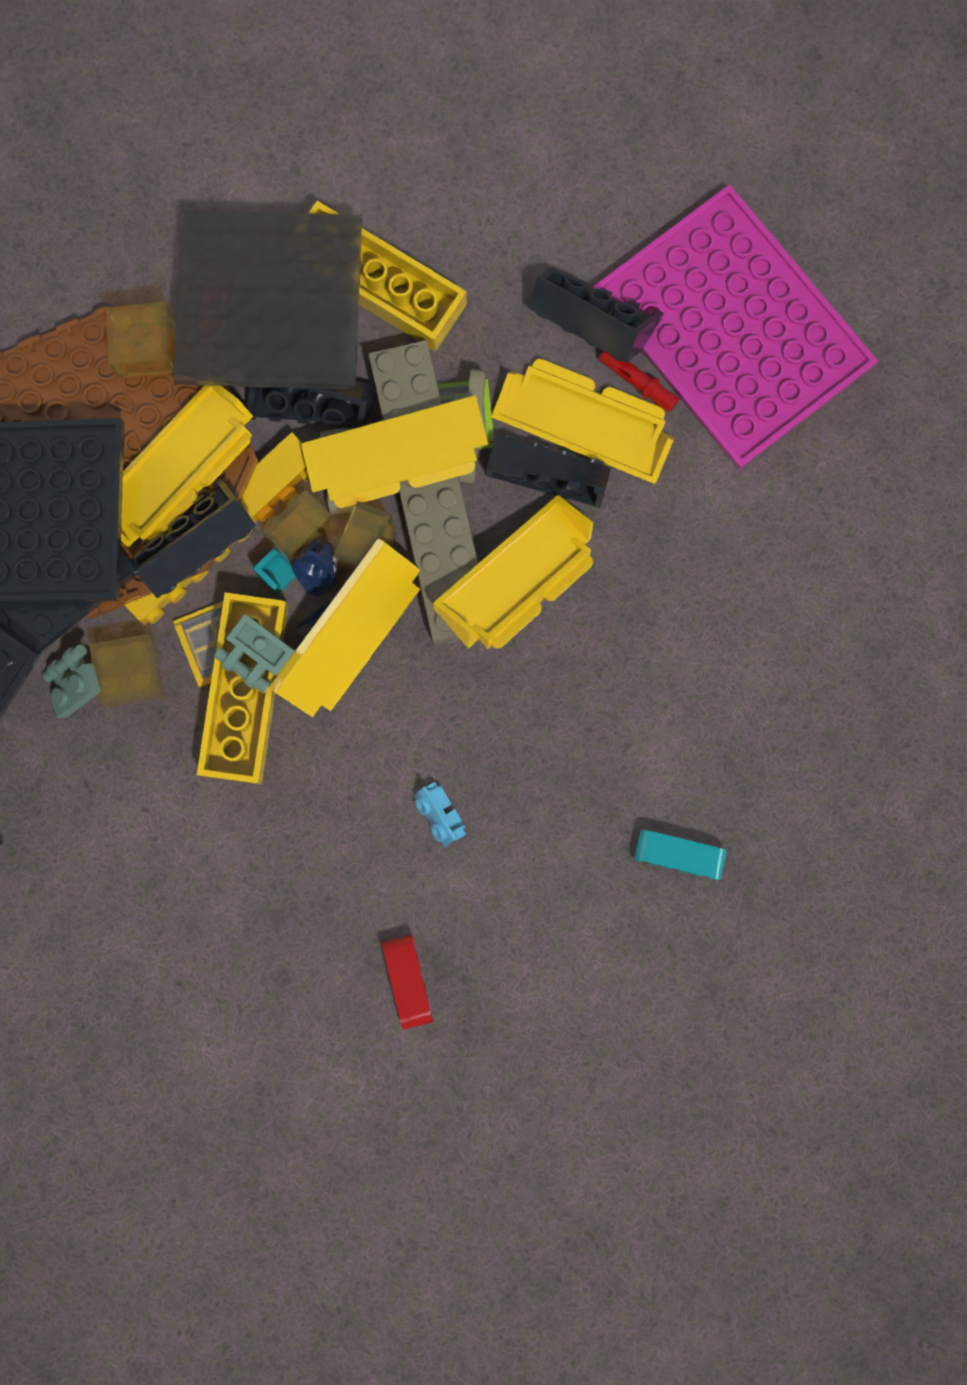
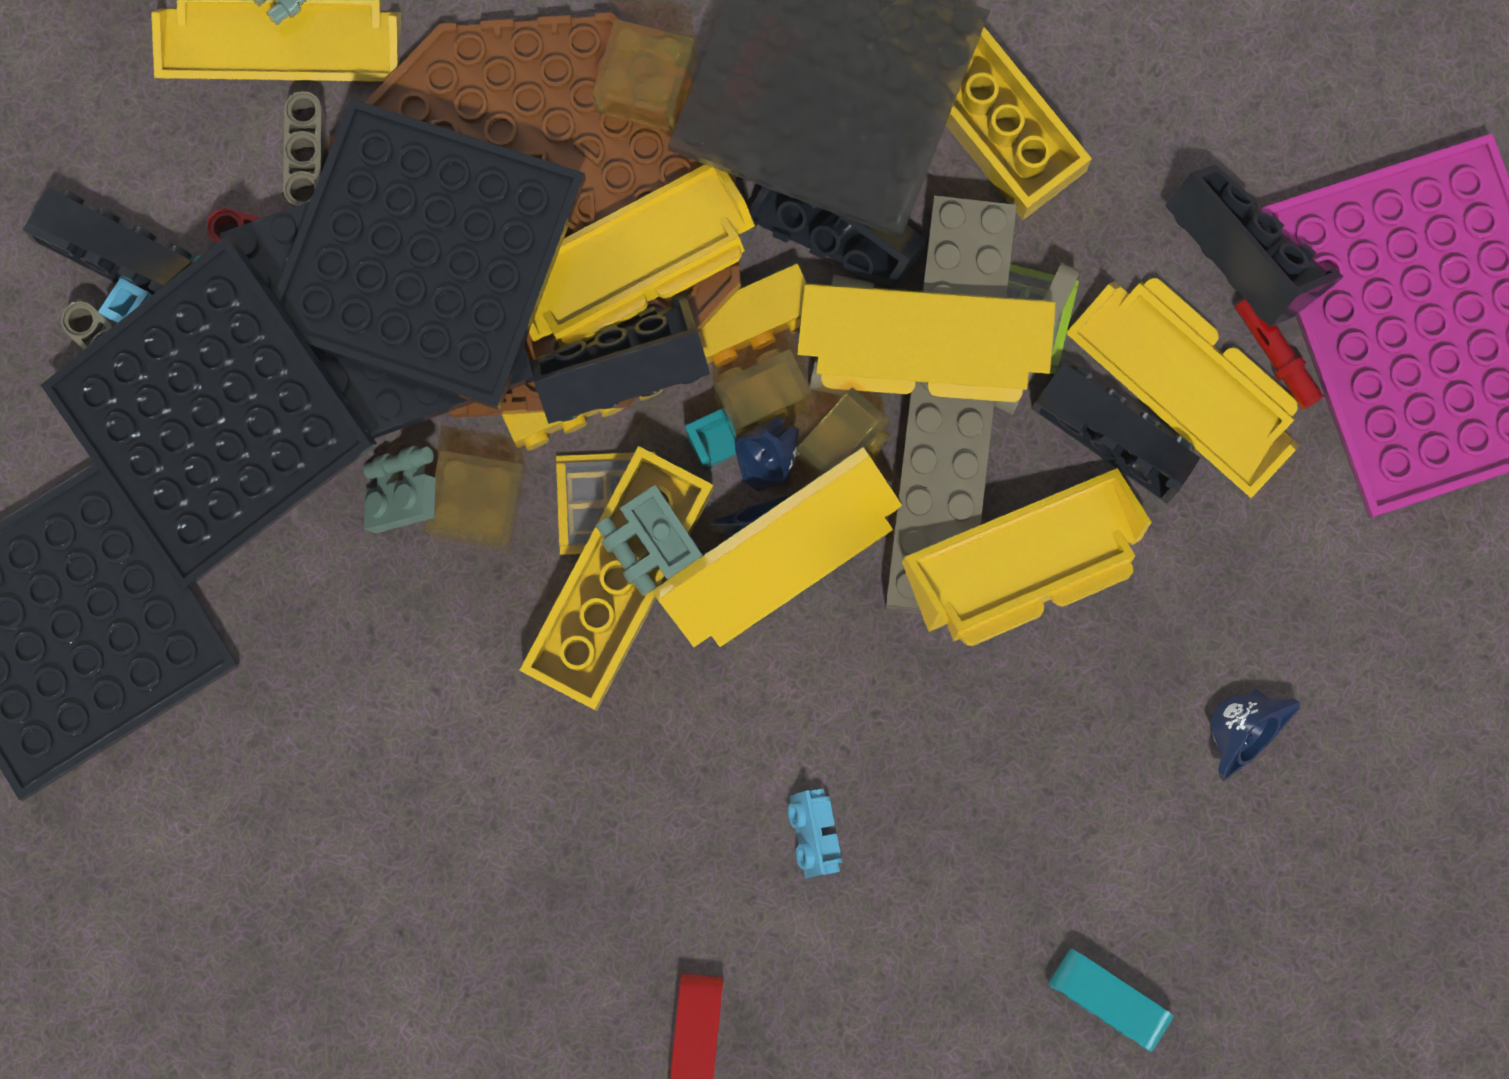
camera: 20 degrees right, 0 degrees up
(706, 638) = (1246, 726): none -> dark blue hat

